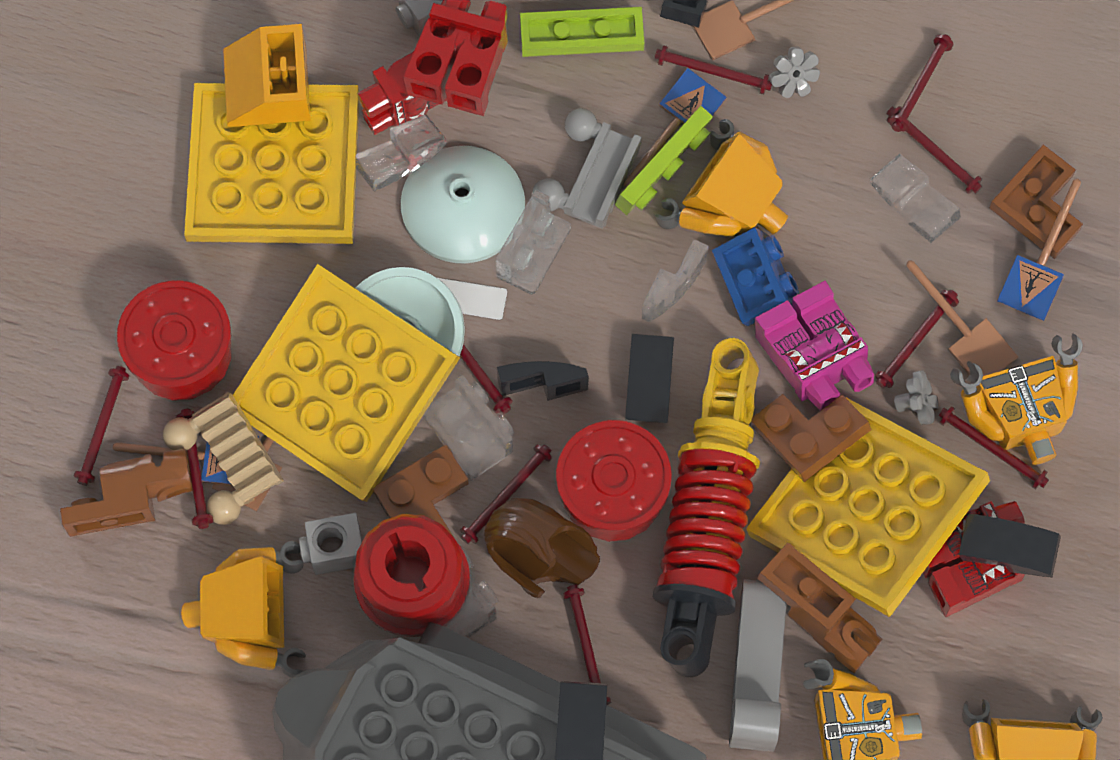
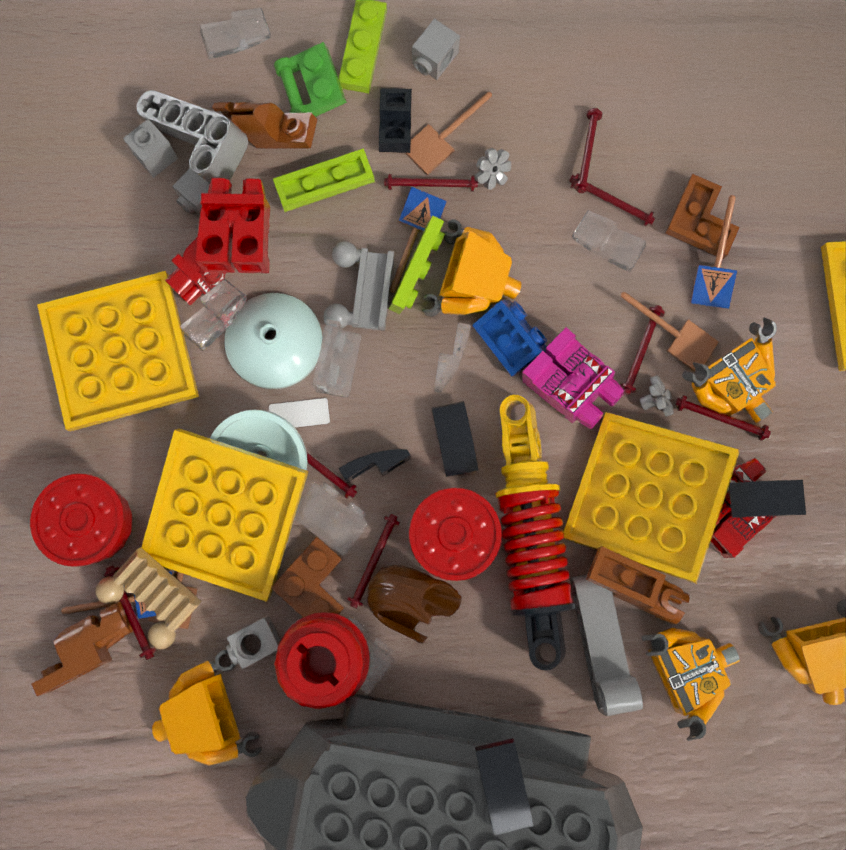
camera: 20 degrees left, 10 degrees up
(118, 375) = (47, 605): dark red axle -> none
(267, 77) = (92, 285): light orange slope -> none
(574, 595) = (491, 702): dark red axle -> none
(813, 442) = (590, 457): dark orange plate -> none

